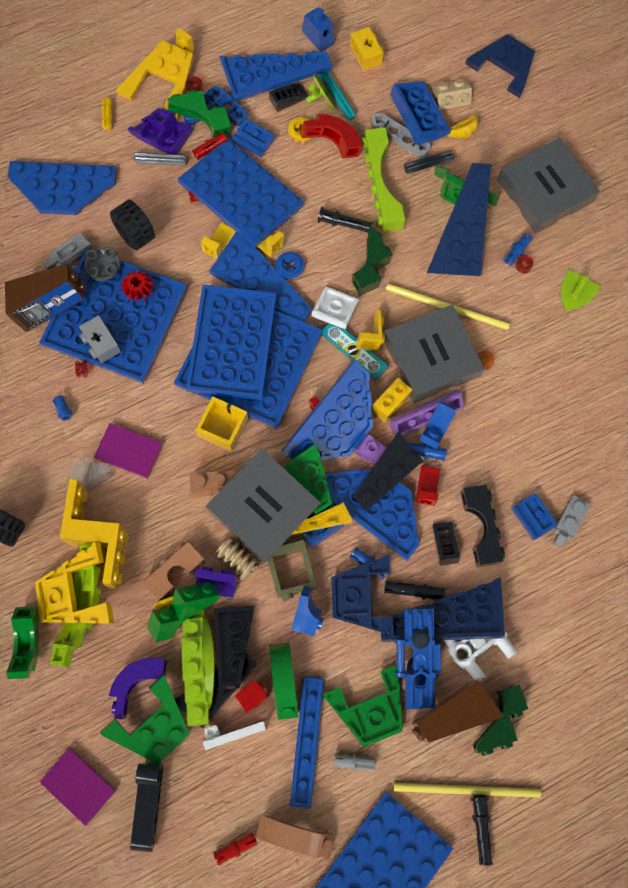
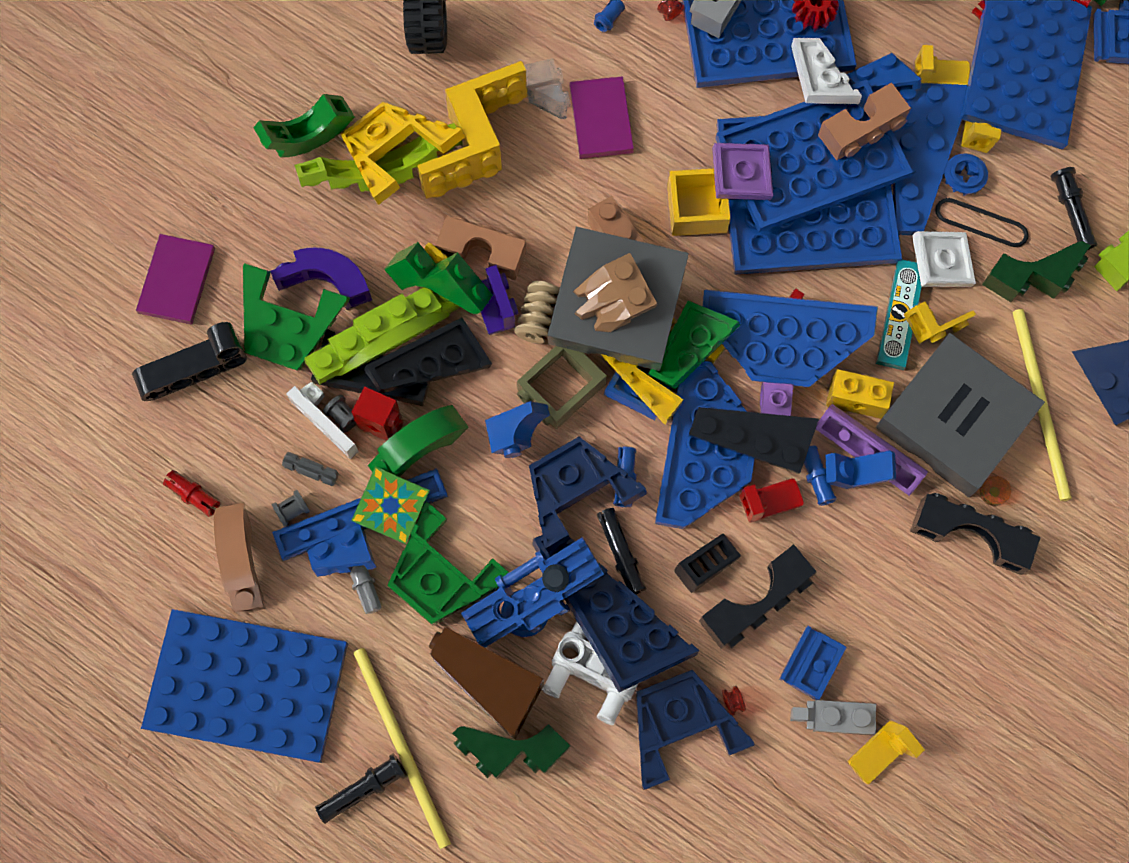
camera: 65 degrees right, 0 degrees up
(184, 309) = (819, 76): none -> white wing
(202, 272) = (883, 72): none -> blue wing
(221, 387) = (742, 171): none -> medium lavender tile
(232, 316) = (846, 135): none -> nougat arch
(235, 719) = (341, 413): none -> dark grey bush
(262, 757) = (310, 468): none -> dark grey axle
(265, 506) = (615, 294): none -> medium nougat plate
(280, 785) = (290, 508): none -> dark grey bush
(314, 718) = (390, 505): none -> tile
(329, 766) = (342, 553): none -> blue wing
(338, 254) = (977, 231): none -> black piece
(521, 372) = (1010, 546): none -> black arch
(525, 611) = (676, 711): none -> dark blue wing
(535, 573) = (733, 700): none -> clear red bush
(601, 506) = (883, 749): none -> yellow bracket

